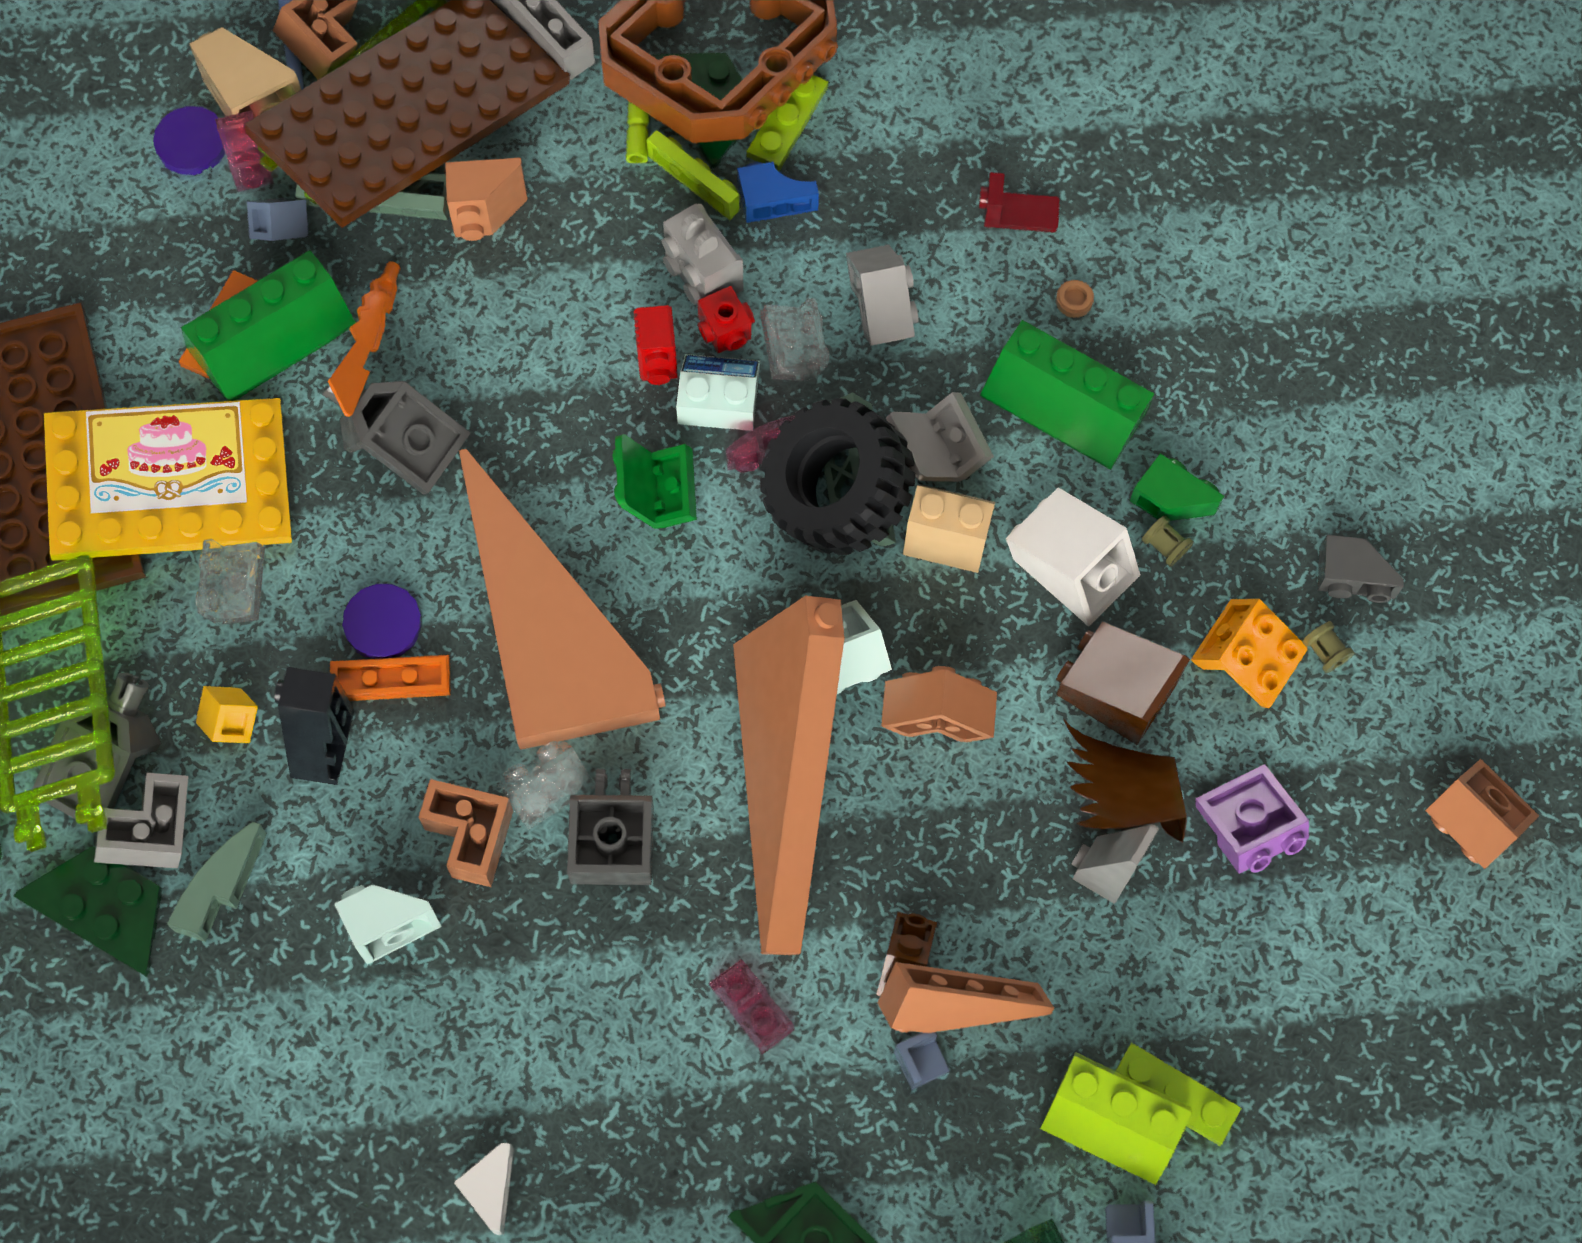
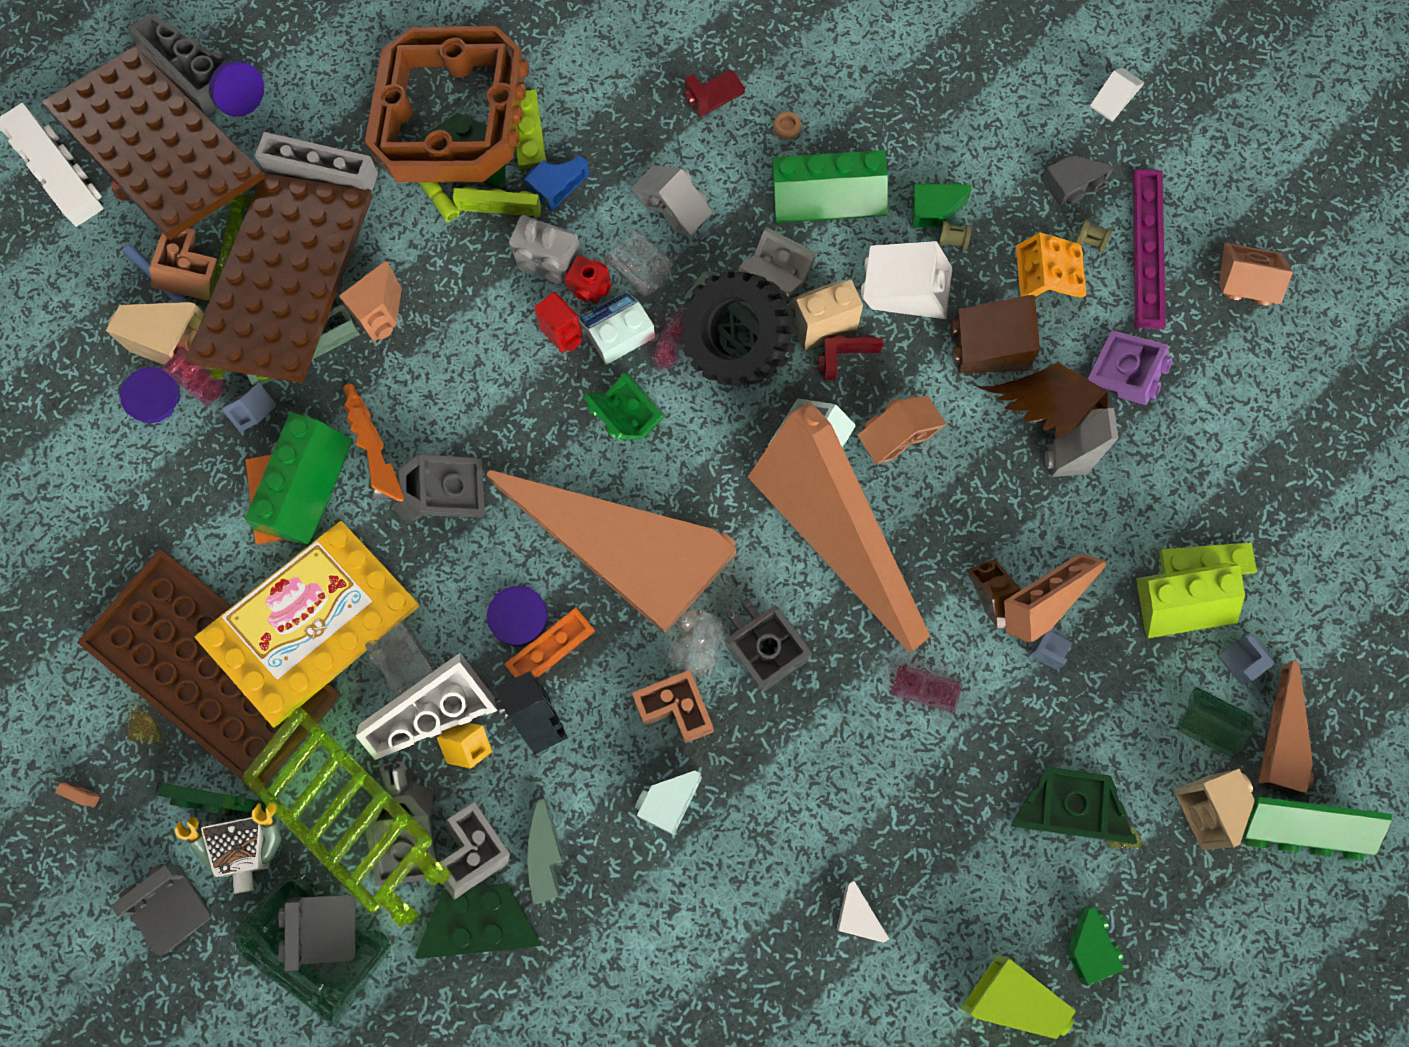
camera: 30 degrees left, 5 degrees up
(238, 650) = (434, 704): none -> white wedge
(917, 581) = (841, 344): none -> dark red bracket
(1382, 705) = (1148, 249): none -> magenta tile
(1484, 507) = (1116, 93): none -> white slope

